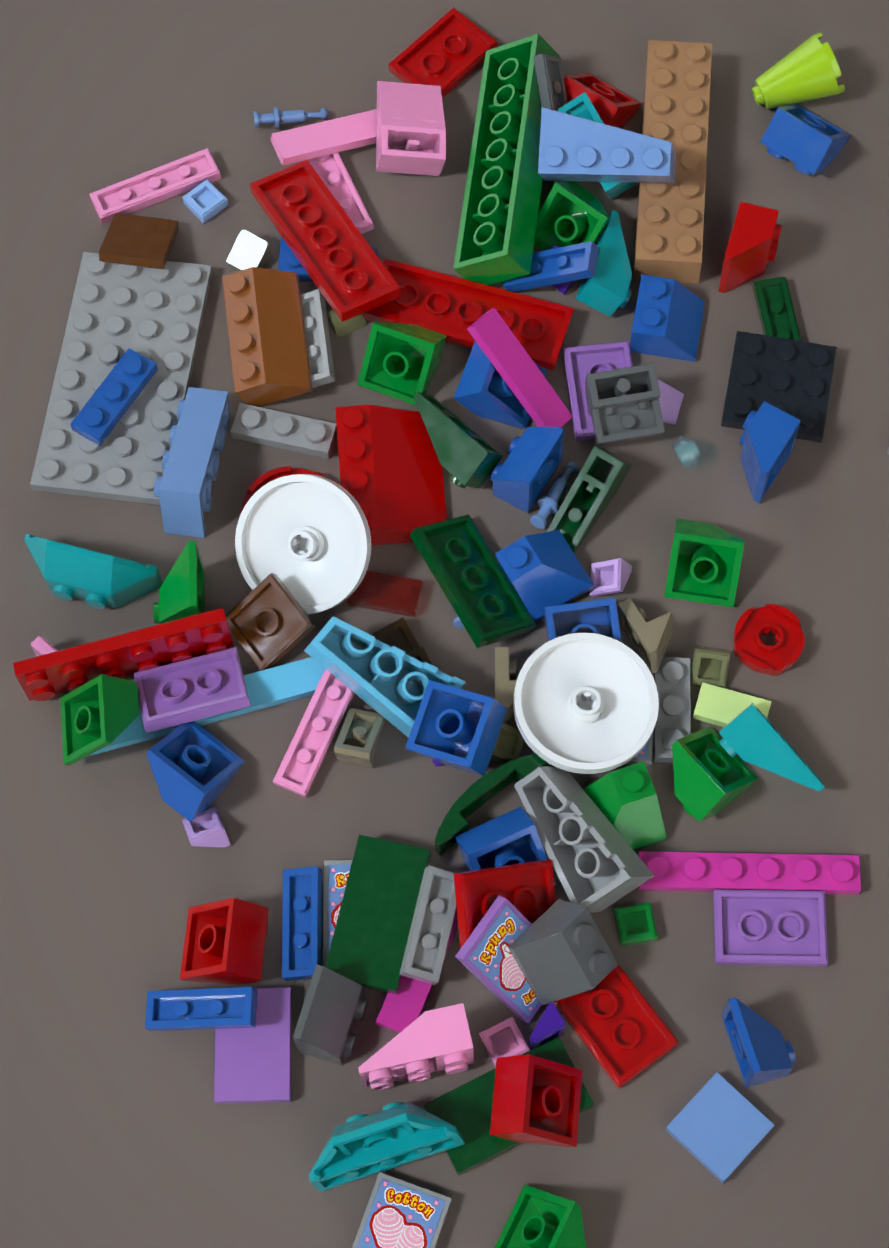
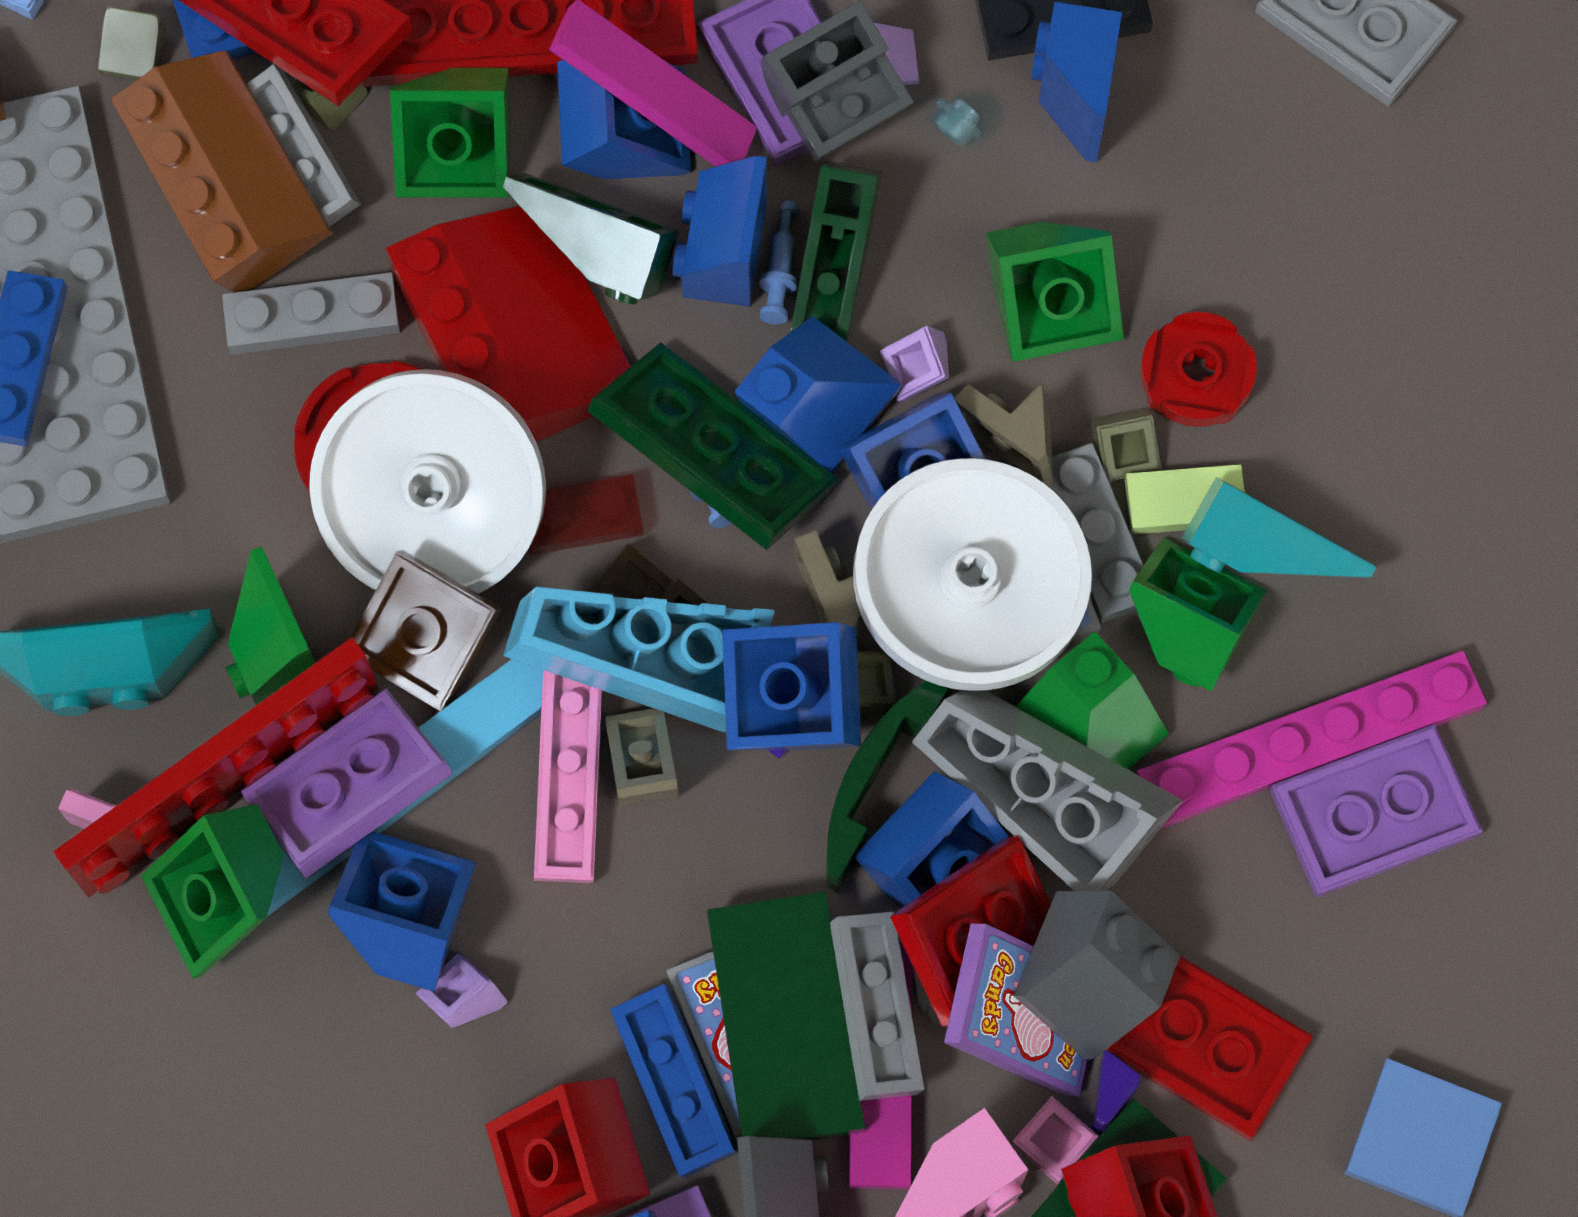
camera: 25 degrees left, 5 degrees up
(192, 461) = (189, 416): medium blue wedge -> none
(635, 924) = (1176, 883): green tile -> none
(756, 1045) = (1429, 995): blue slope -> none

